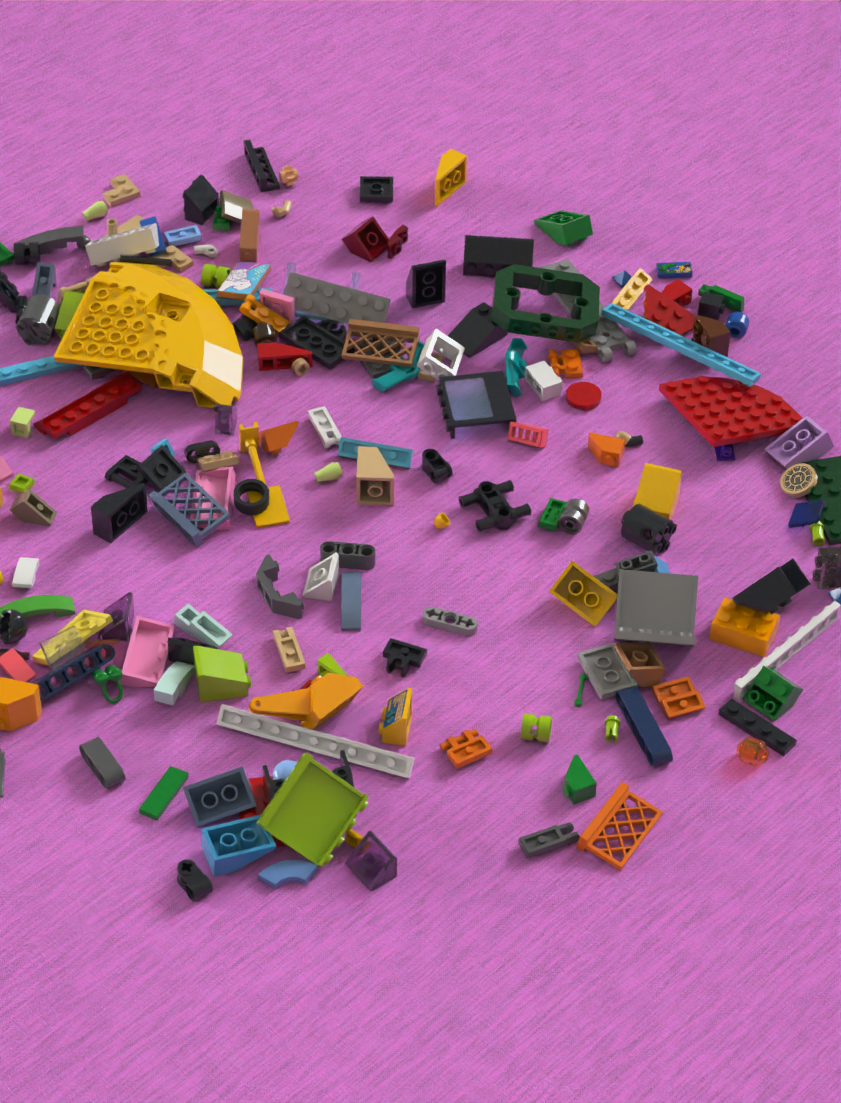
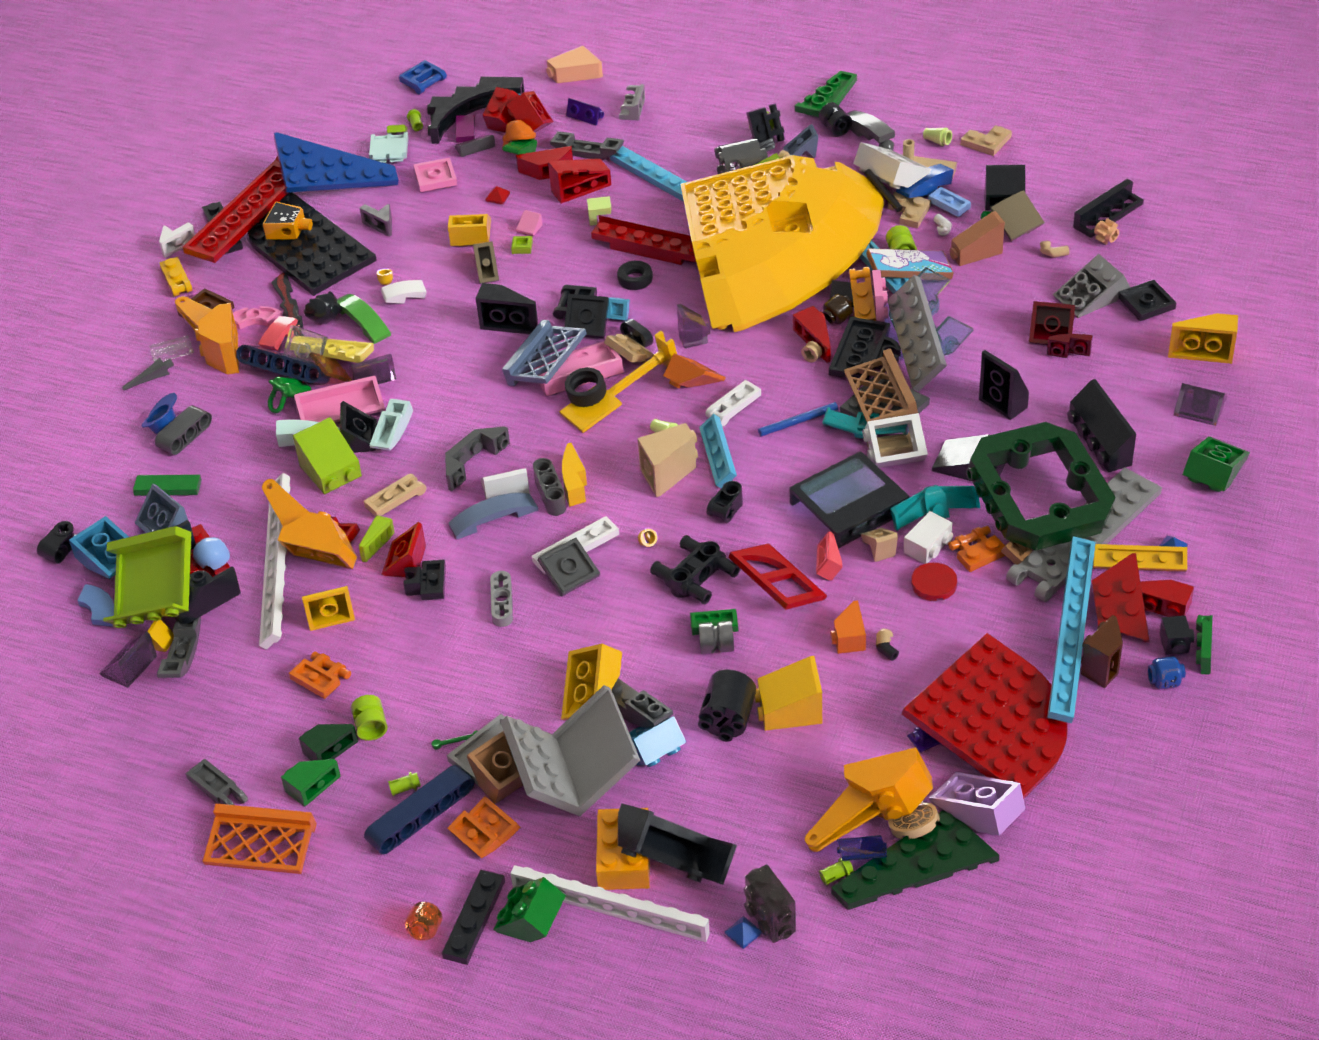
camera: 70 degrees right, 0 degrees up
(73, 767) = (161, 414): none -> blue piece
(126, 438) = (635, 267): none -> black tyre
(340, 533) = (573, 476): none -> yellow slope
(343, 206) = (1092, 287): none -> light grey slope
(365, 658) = (405, 552): none -> red slope
(366, 402) = (796, 419): none -> blue bar
(389, 830) = (181, 650): none -> dark grey slope
(422, 562) = (589, 537): none -> white plate
(446, 571) = (568, 566): none -> dark grey tile
(500, 210) = (1199, 404): none -> clear purple slope
(502, 466) = (768, 554): none -> red window
(532, 401) = (882, 543): none -> tan slope
(545, 762) = (327, 741): none -> dark green slope
(674, 270) = (1226, 584): tile -> none
(772, 486) = (877, 787): none -> light orange slope

